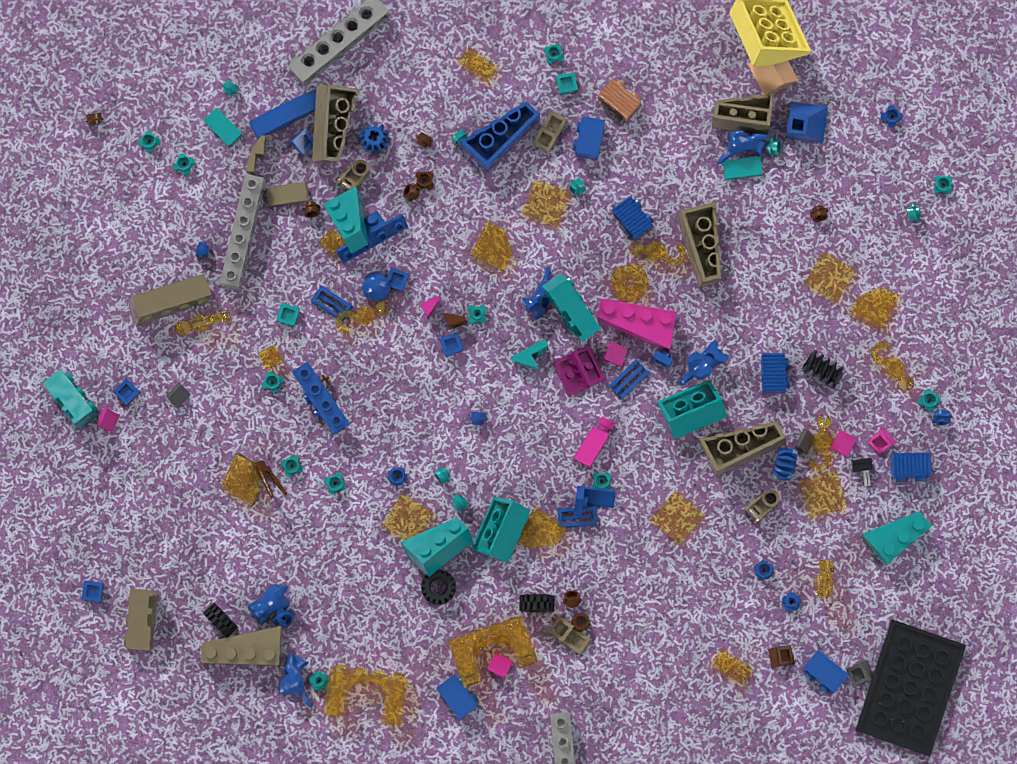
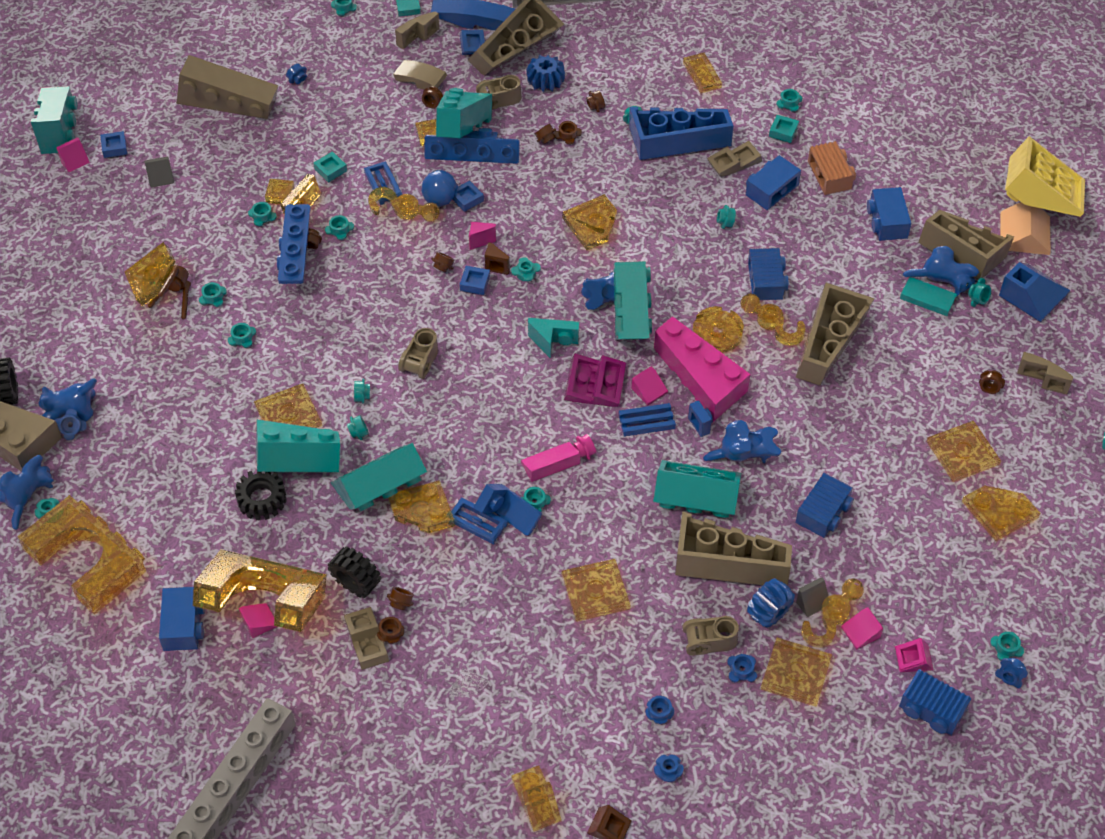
camera: 30 degrees right, 25 degrees down
(202, 323) = (241, 128): clear yellow piece -> none
(242, 232) = (347, 78): light grey brick -> none
(289, 354) = (304, 193): none -> clear yellow plate
(331, 354) = (339, 221): none -> teal plate
(392, 476) = (309, 360): blue plate -> none
(420, 343) = (442, 262): none -> reddish brown plate
(459, 426) = (418, 356): none -> dark tan piece
(478, 418) = (446, 360): blue plate -> none
(546, 203) = (681, 216): clear yellow tile -> none
(680, 116) = (889, 214): none -> blue brick
(792, 508) = (745, 661): none -> blue plate
(823, 368) = (890, 534): black piece -> none
(824, 580) = (735, 753): clear yellow plate -> none
(854, 187) = (1053, 376): none -> dark tan slope
(865, 466) = (871, 667): black piece -> none
(894, 367) = (983, 582): clear yellow piece -> none
(896, 536) = (862, 771): teal wedge -> none

